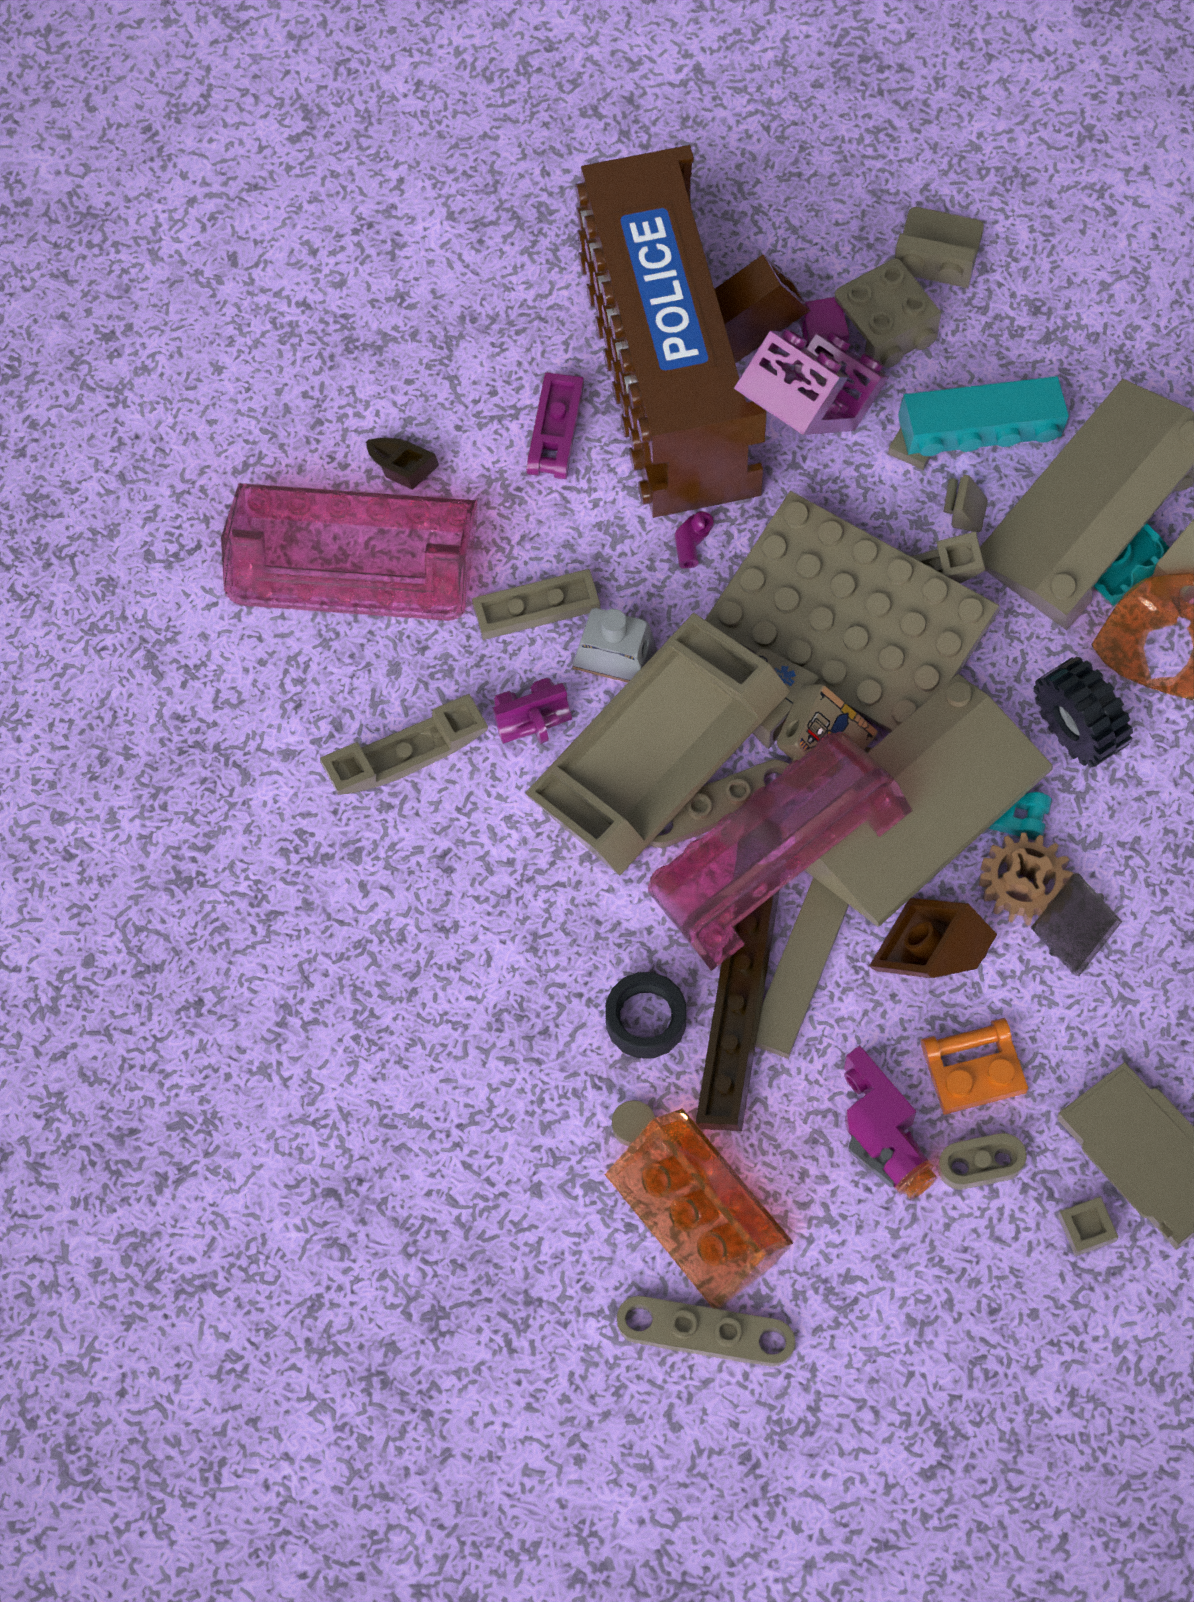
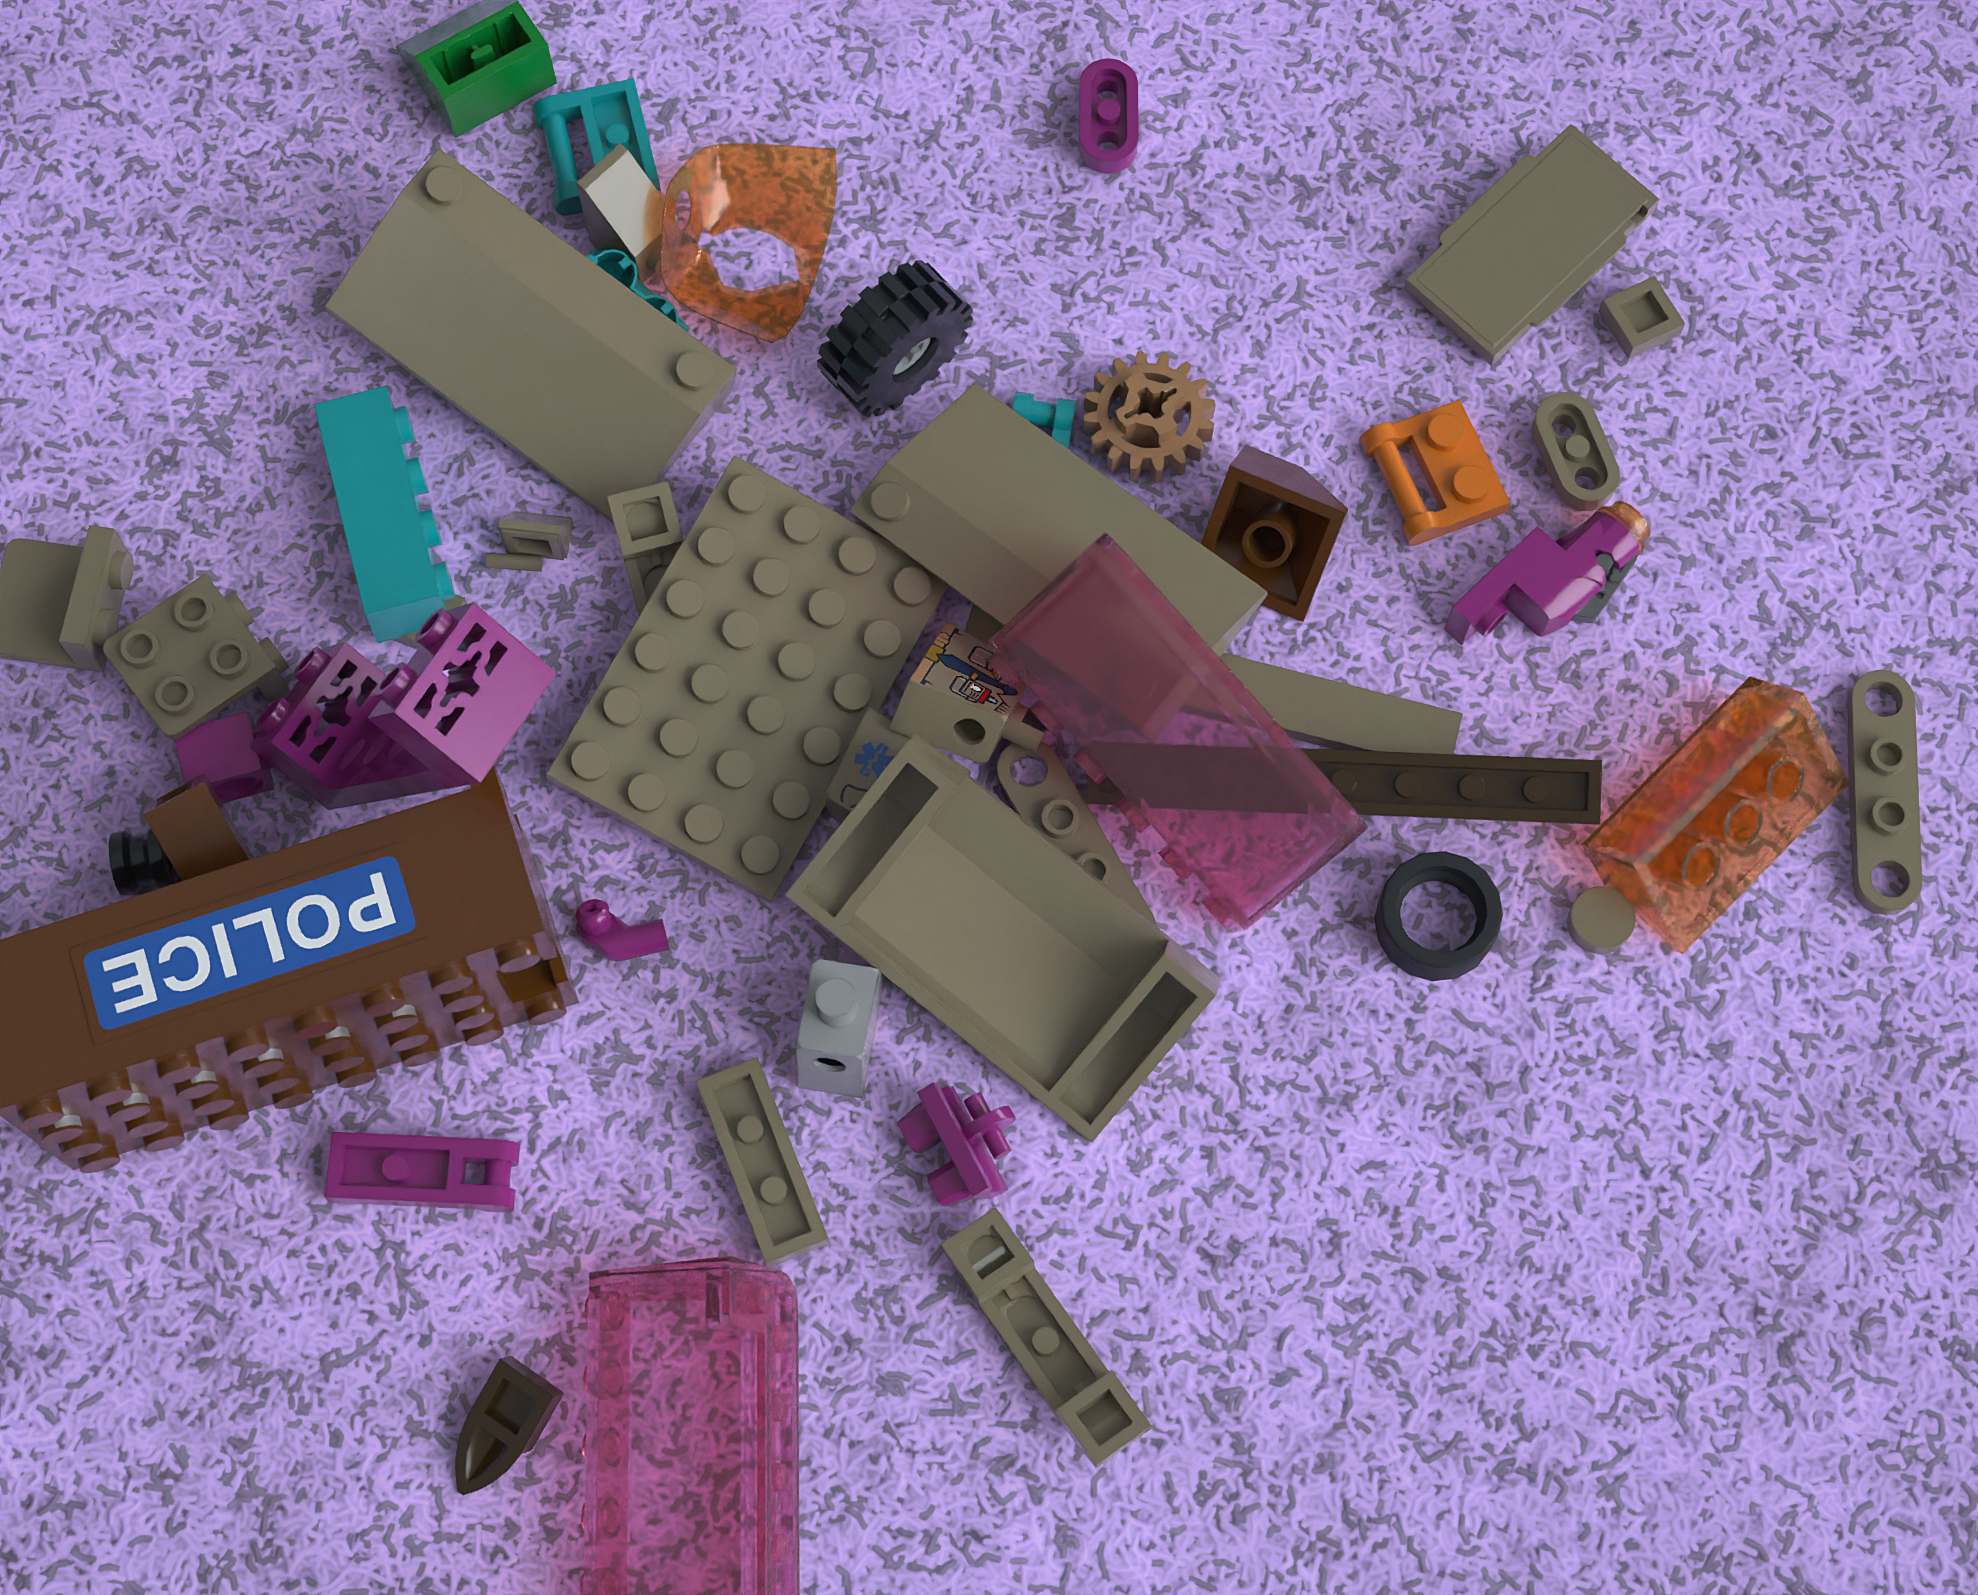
camera: 100 degrees left, 5 degrees up
(1076, 924) = (1210, 348): clear smoke piece -> none

